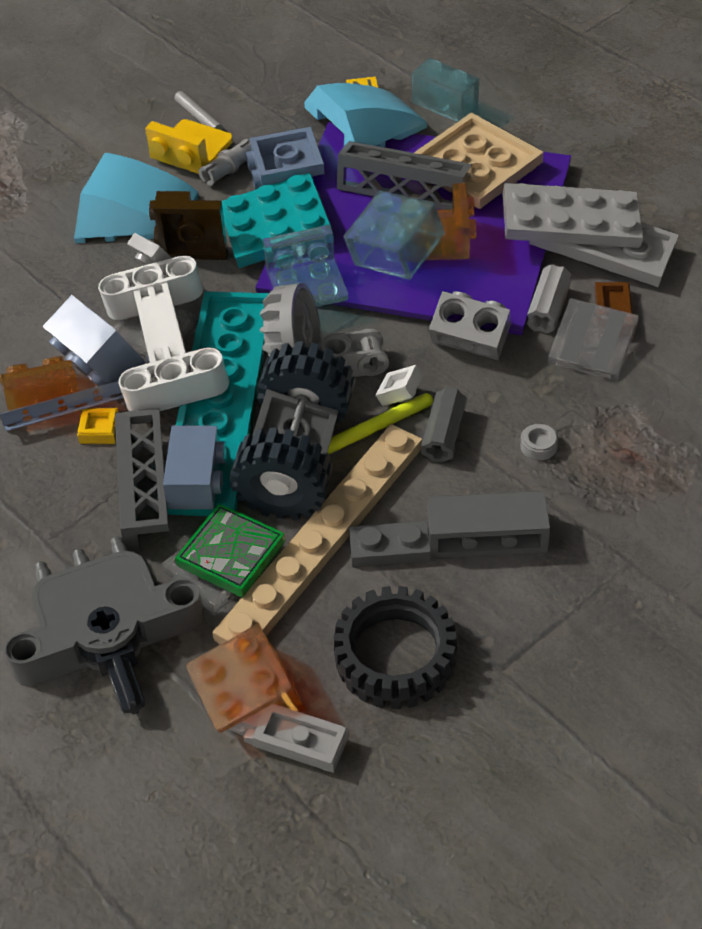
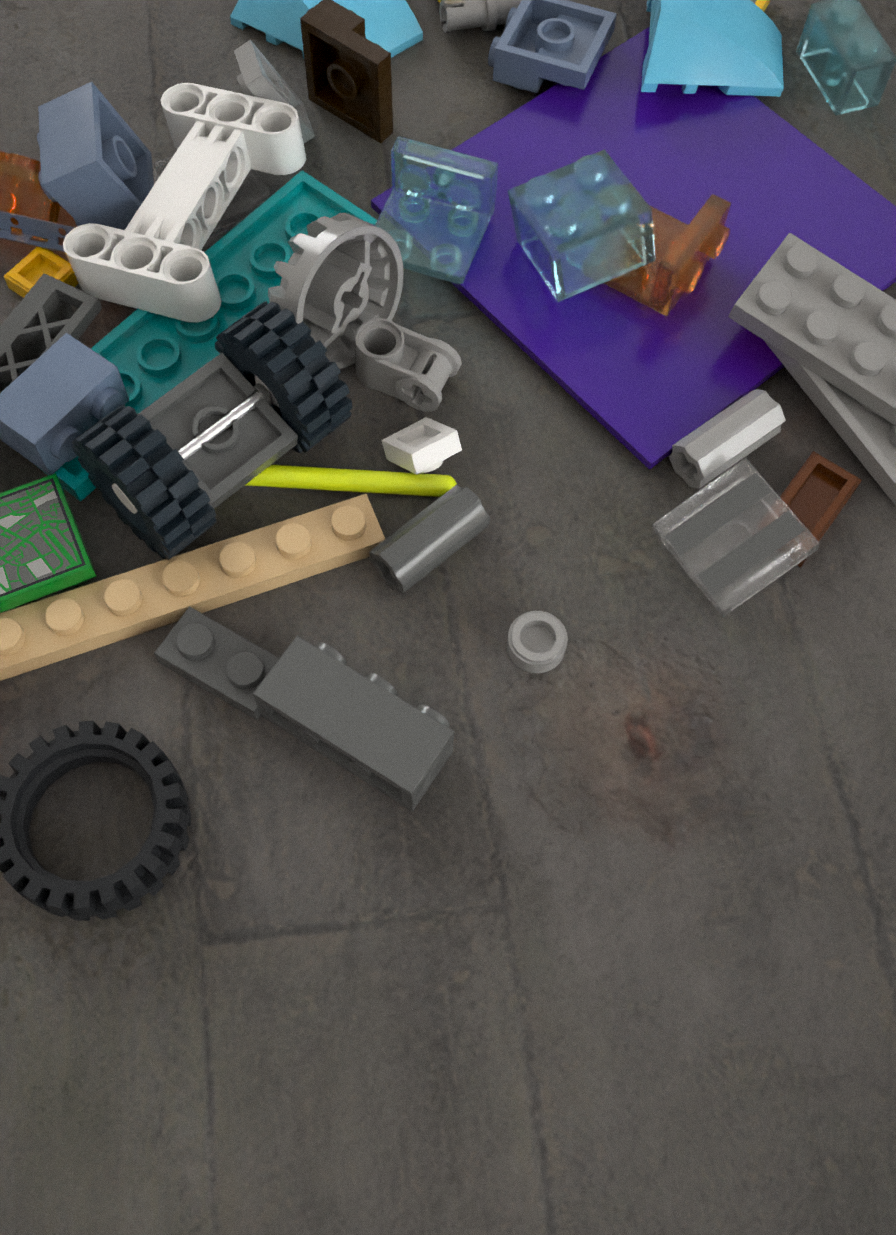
camera: 30 degrees right, 15 degrees up
(271, 212) = (476, 113): teal plate -> none
(399, 165) = (675, 132): dark grey fence -> none
(466, 333) = (573, 420): light grey brick -> none
(494, 156) = (796, 177): tan plate -> none

